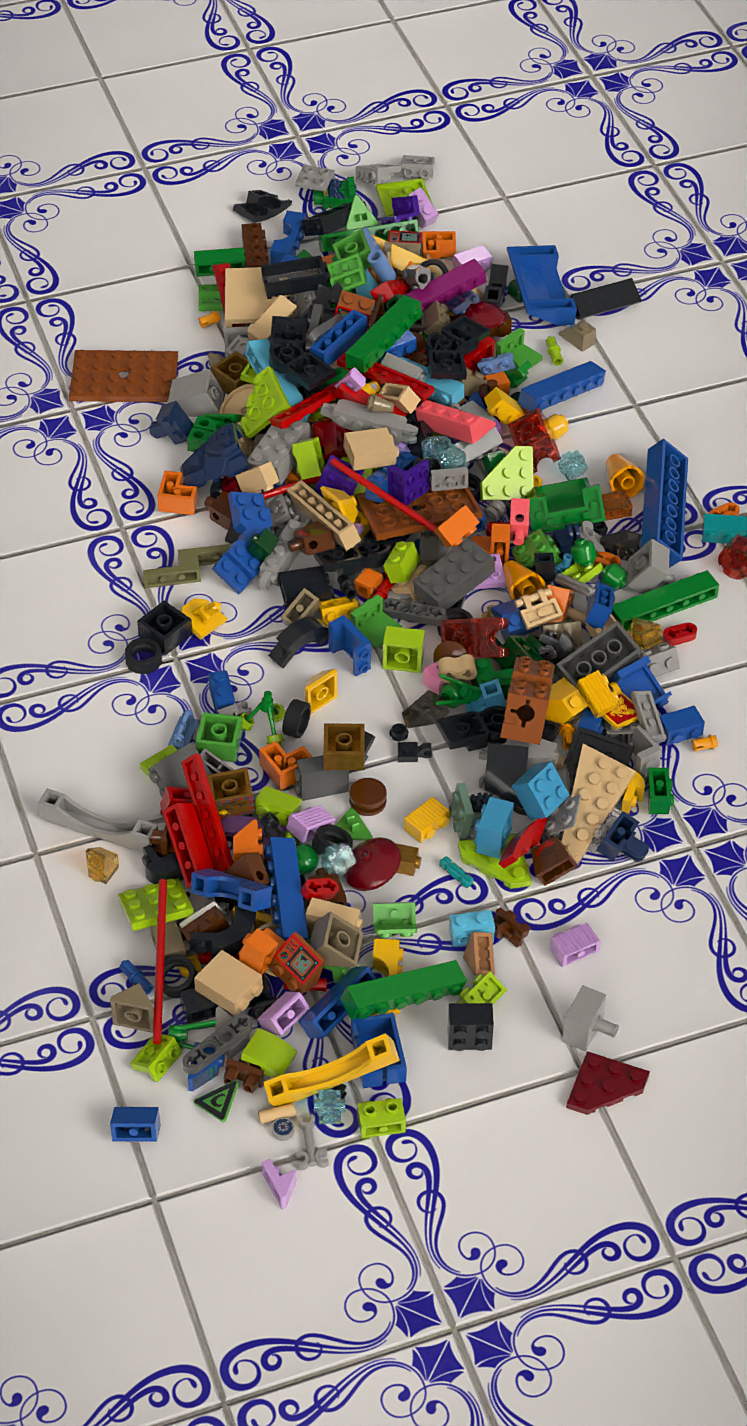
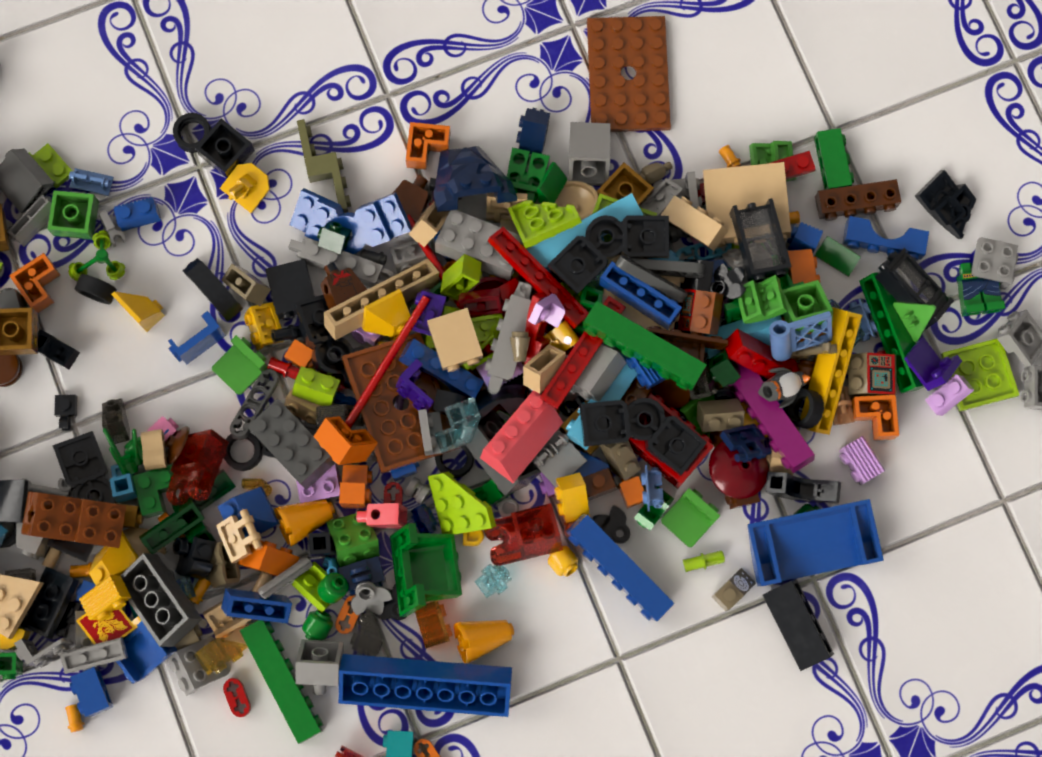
camera: 85 degrees right, 30 degrees up
(399, 732) = (85, 395): black plate -> none
(403, 649) = (193, 394): lime brick -> none

